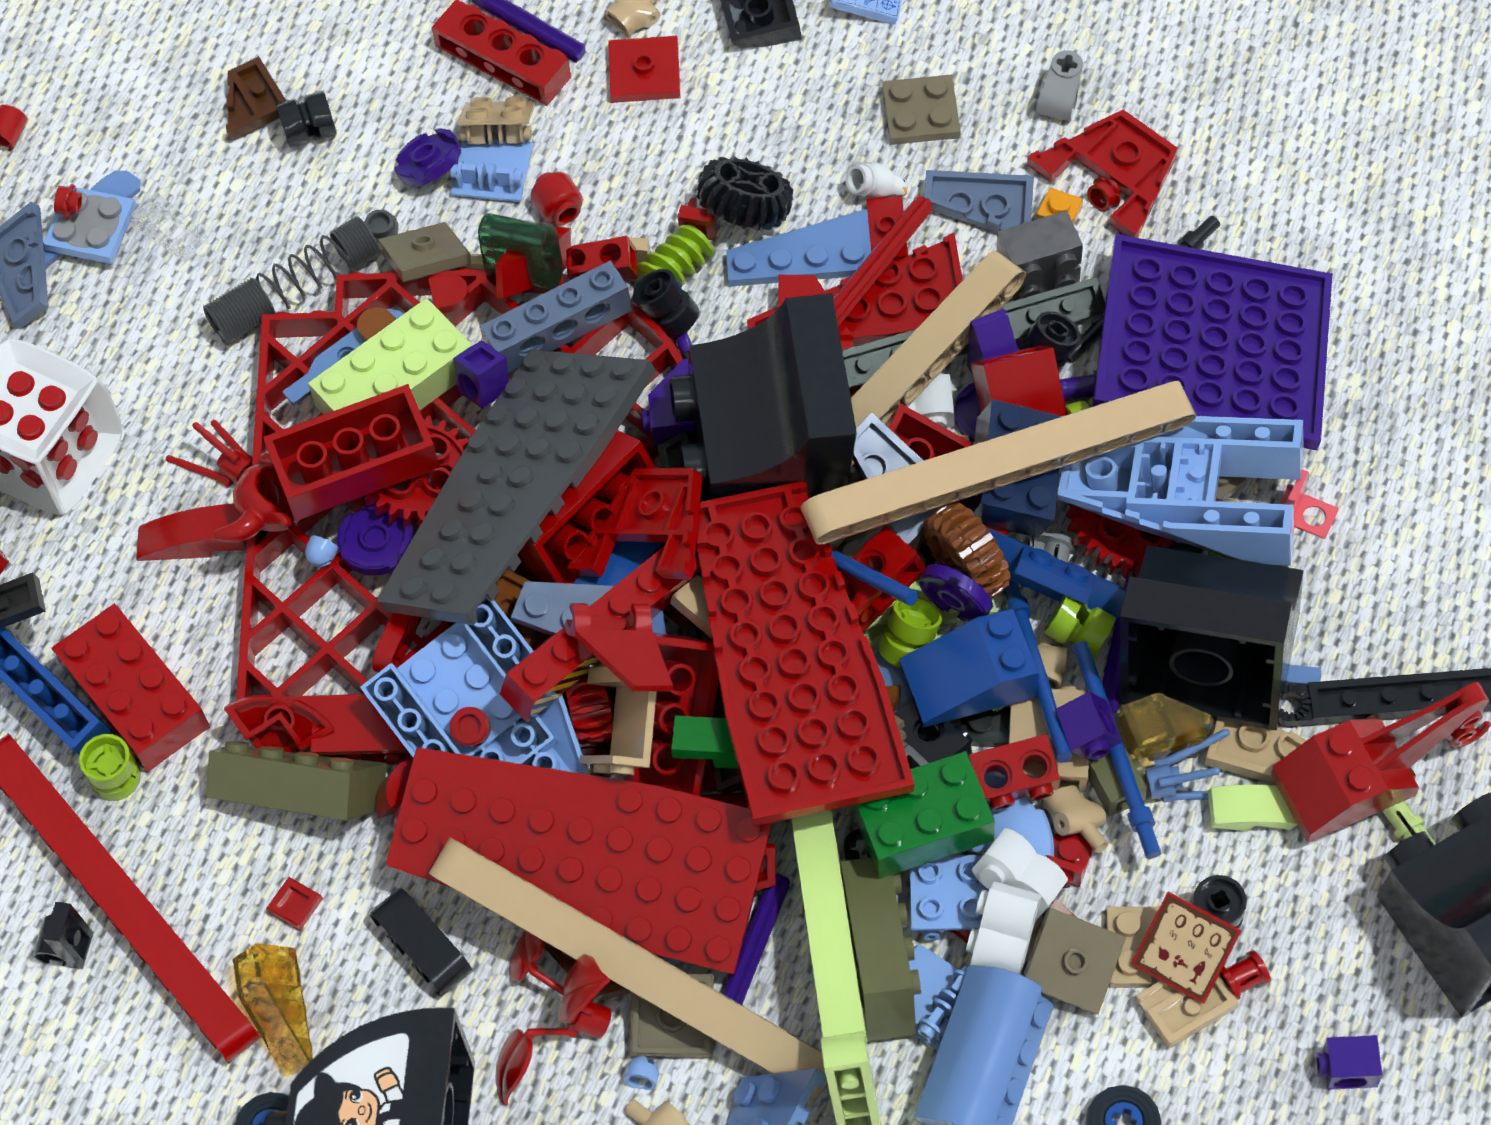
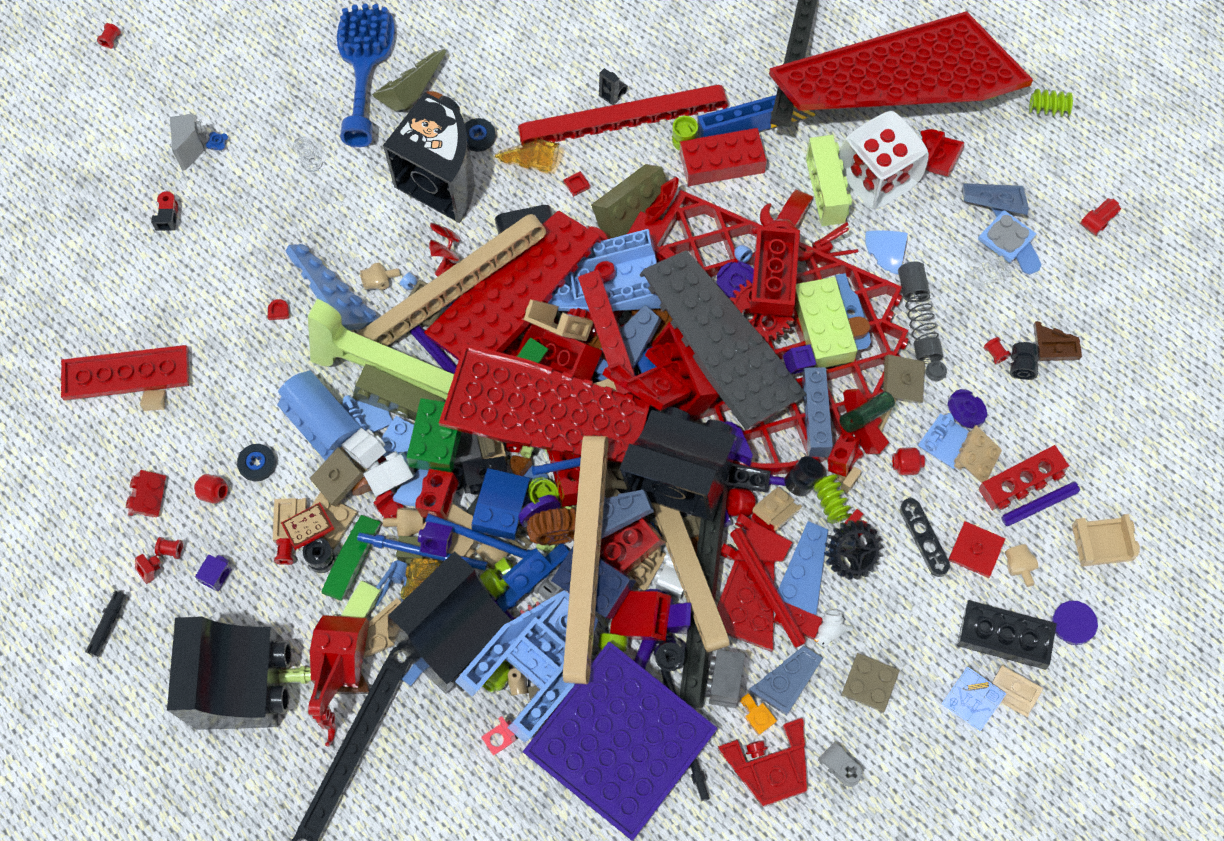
camera: 115 degrees right, 5 degrees up
(67, 201) = (1019, 223): red plate -> none
(108, 500) = (827, 180): none -> yellowish green brick
(190, 377) = (887, 248): none -> light blue brick
(304, 163) = (997, 350): none -> red bush
(449, 292) = (865, 373): red tile -> none
(626, 653) = (575, 322): red flag -> none
(660, 132) = (927, 536): none -> black beam
(734, 315) = (776, 508): none -> tan plate
(1187, 864) = (350, 559): none -> green slope

